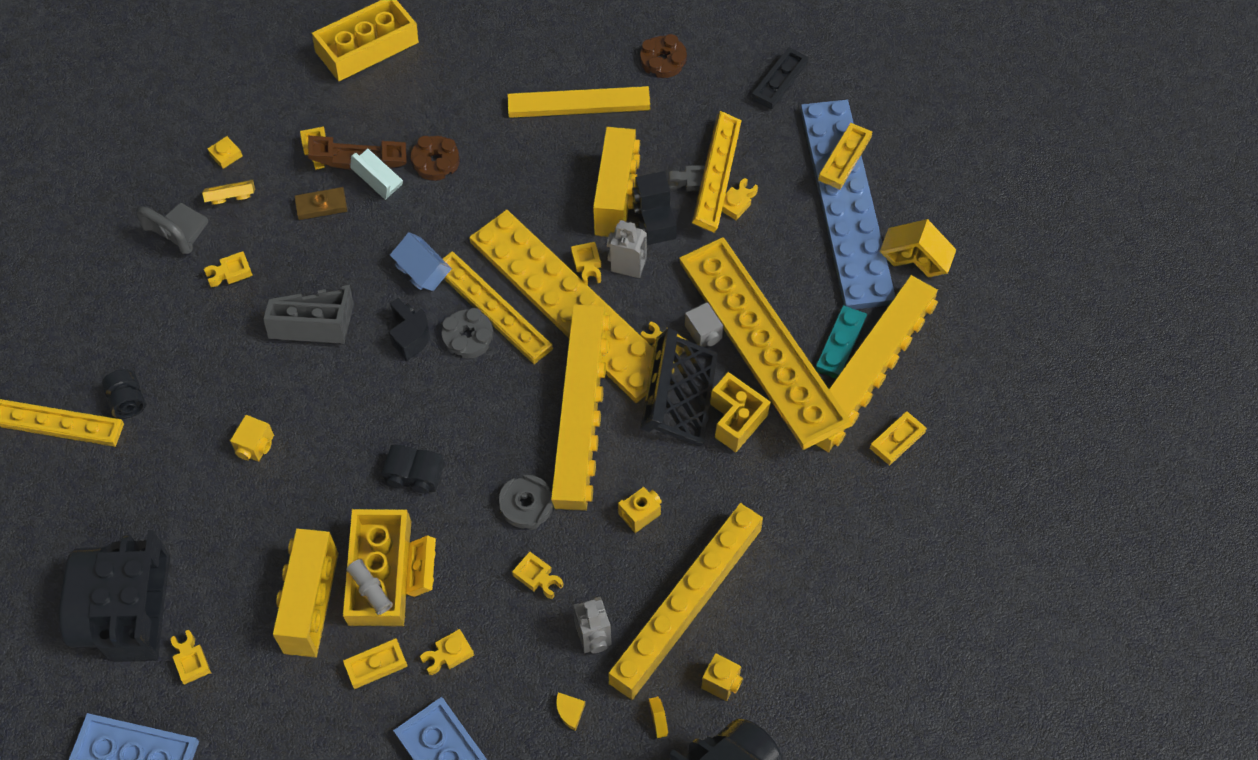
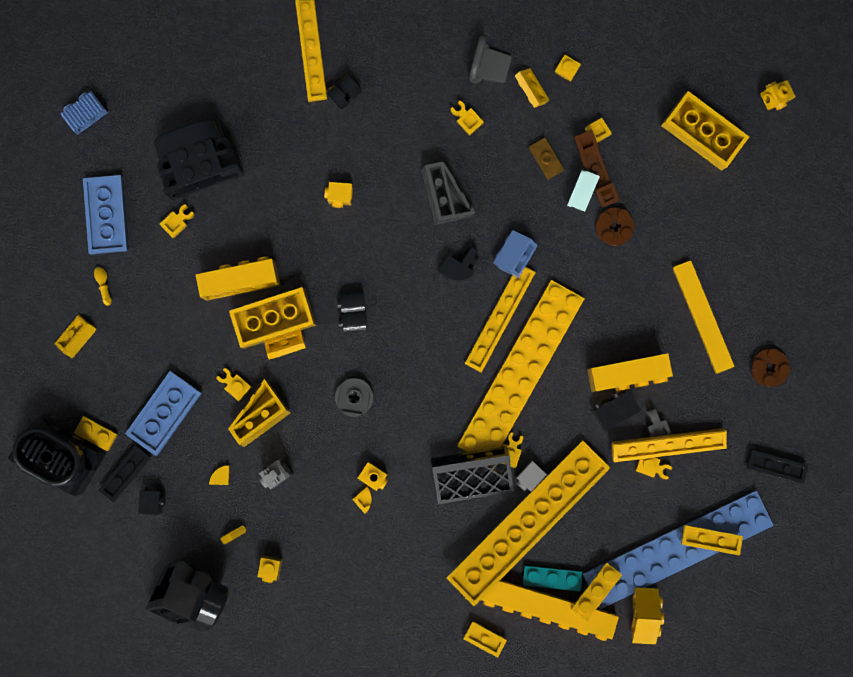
camera: 75 degrees right, 25 degrees up
(369, 586) = (250, 321): light grey pin -> none
(375, 663) = (210, 341): yellow plate -> none
(467, 320) = (472, 297): dark grey plate -> none
(503, 623) = (259, 415): none -> yellow wedge
(535, 573) = (304, 421): yellow plate -> none
(579, 408) = (434, 410): yellow brick -> none
(587, 260) = (559, 372): yellow plate -> none
(627, 249) = (571, 401): light grey hinge -> none
(667, 533) = (363, 500): none -> yellow tile
(685, 601) = (315, 529): yellow brick -> none
(742, 411) = (466, 527): yellow brick -> none
(873, 289) = (596, 592): none -> yellow plate

